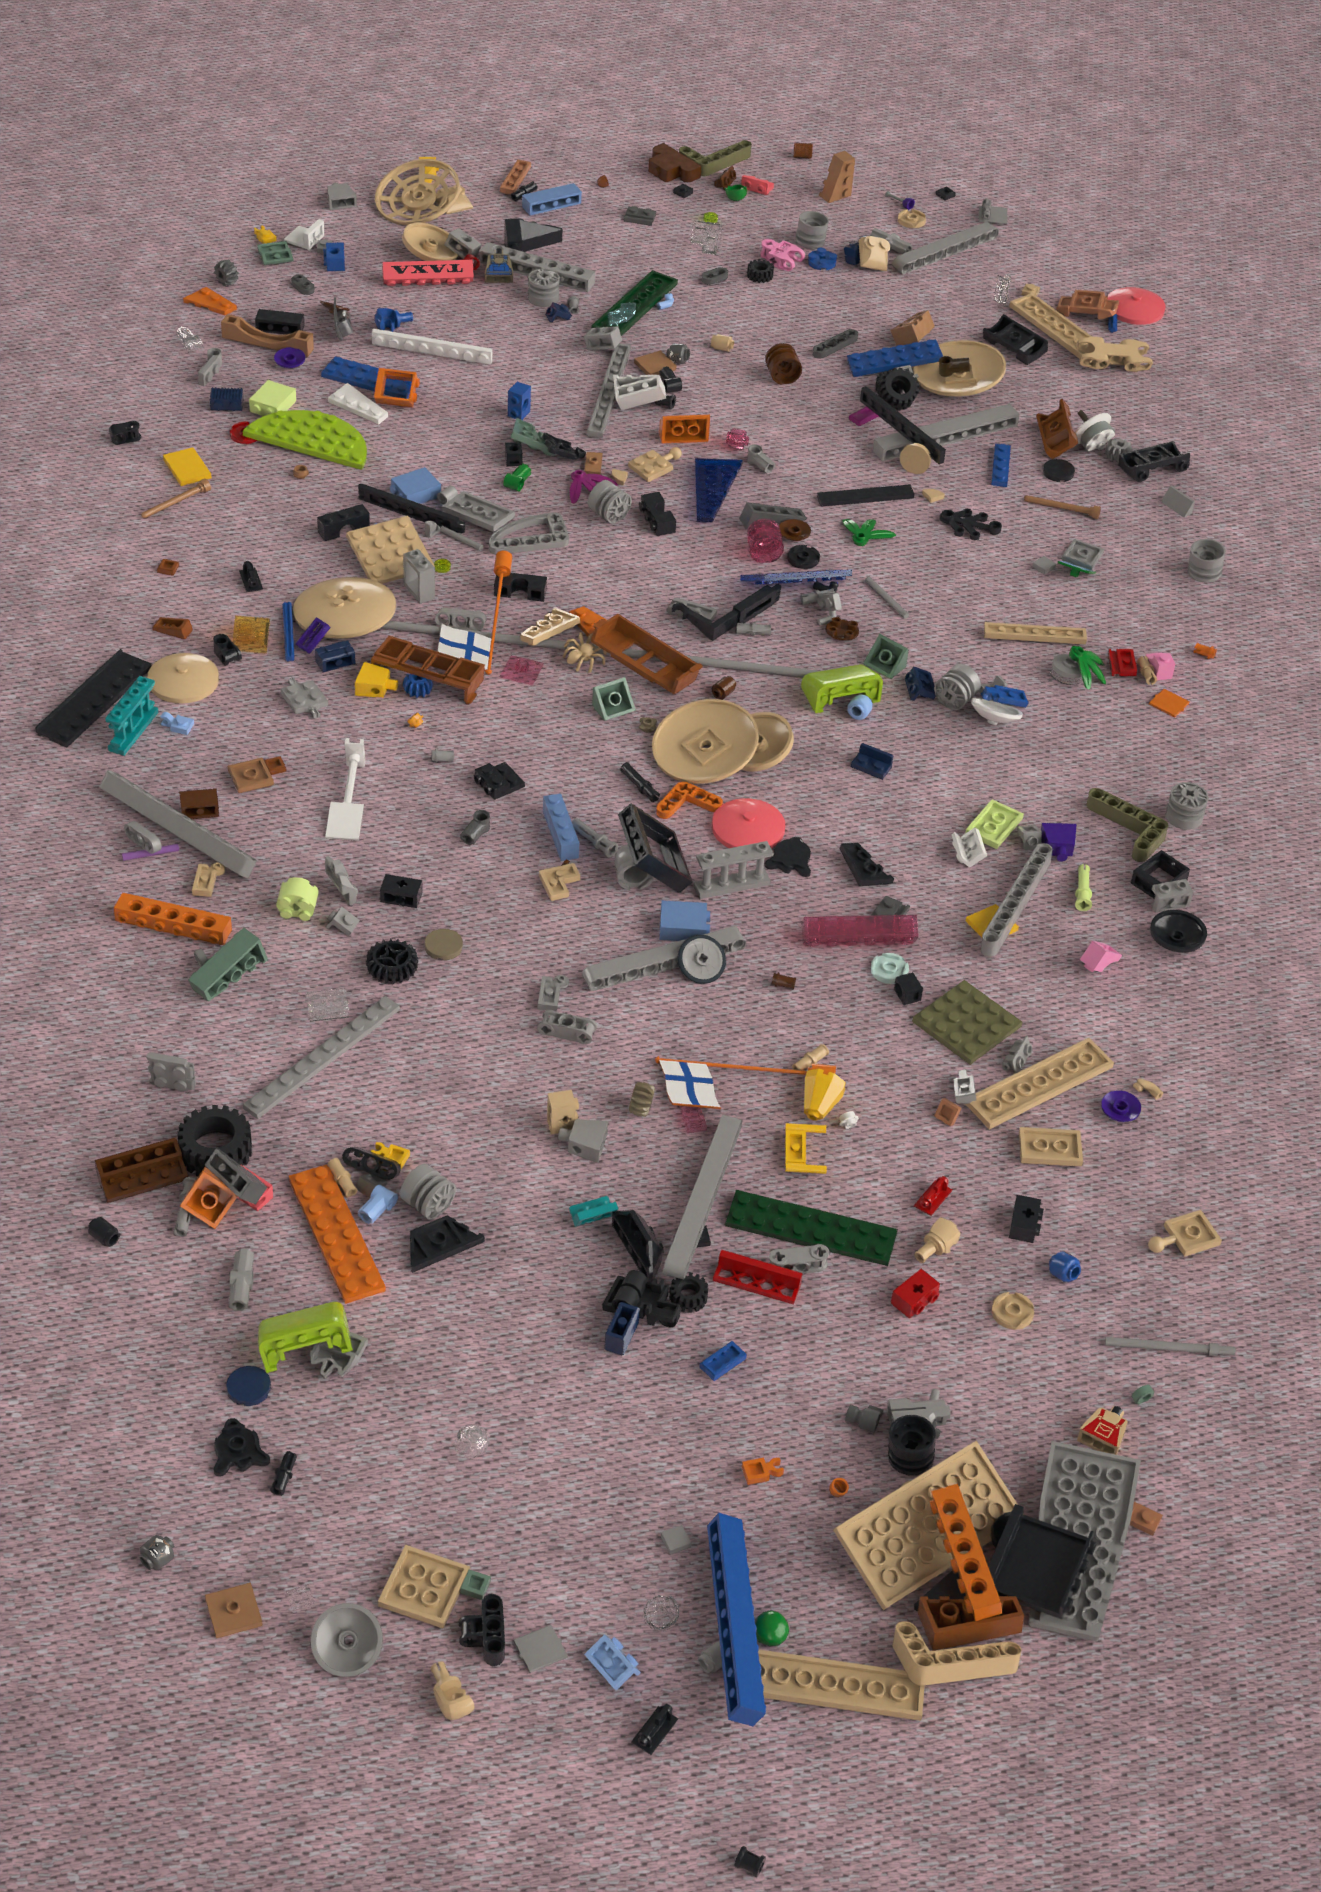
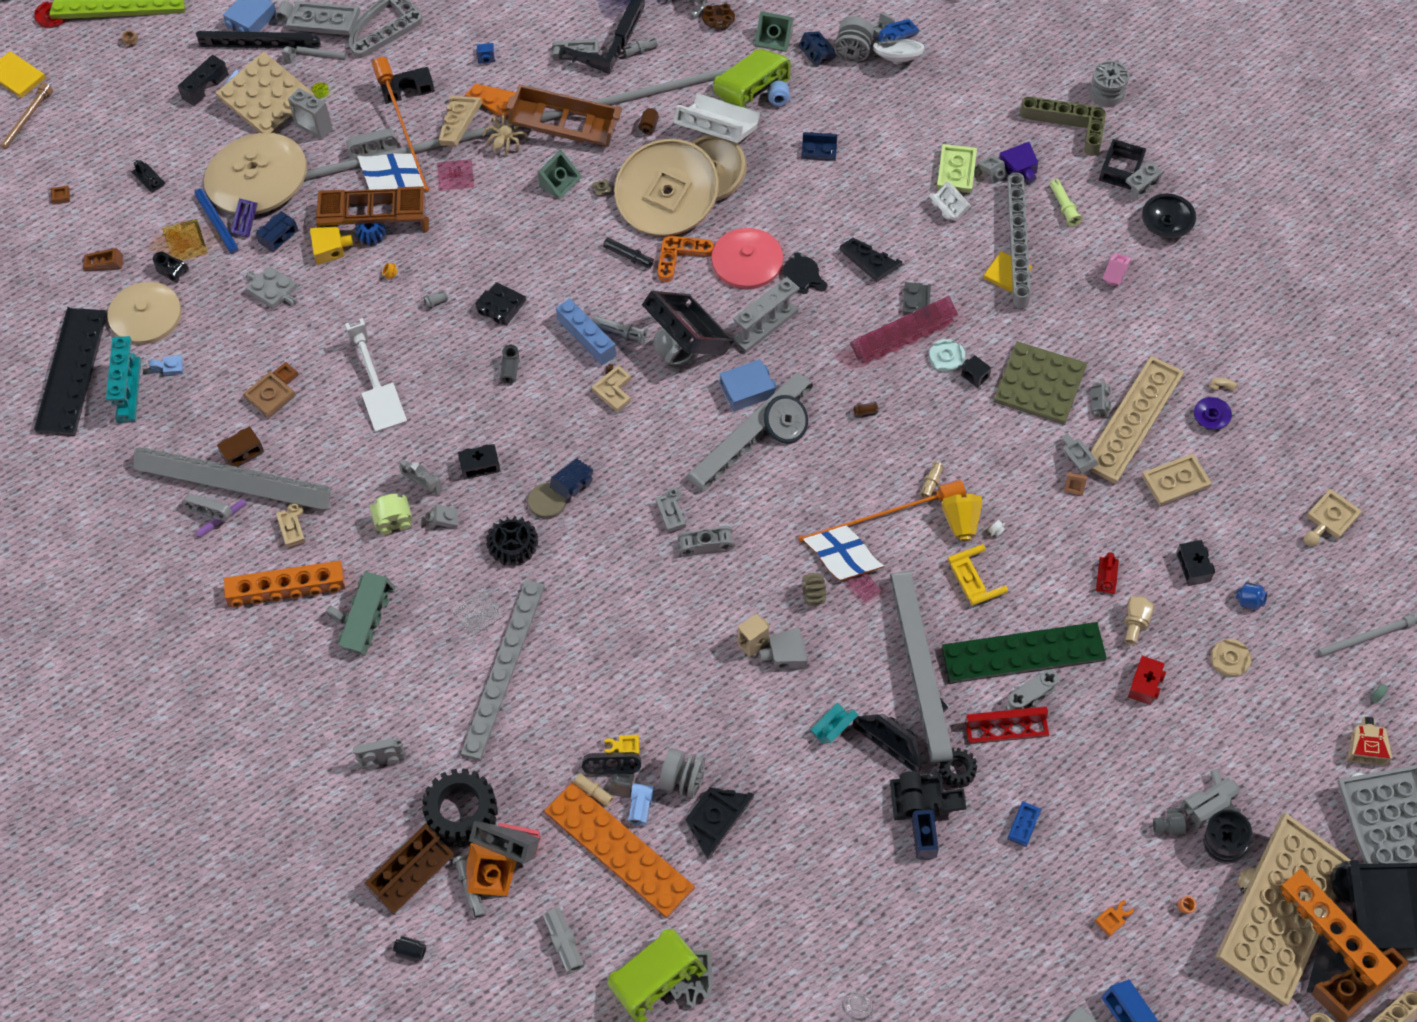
camera: 20 degrees left, 15 degrees up
(475, 933) = (571, 478): none -> dark blue brick
(608, 586) = (485, 53): none -> blue bracket
(786, 703) = (717, 118): none -> white panel

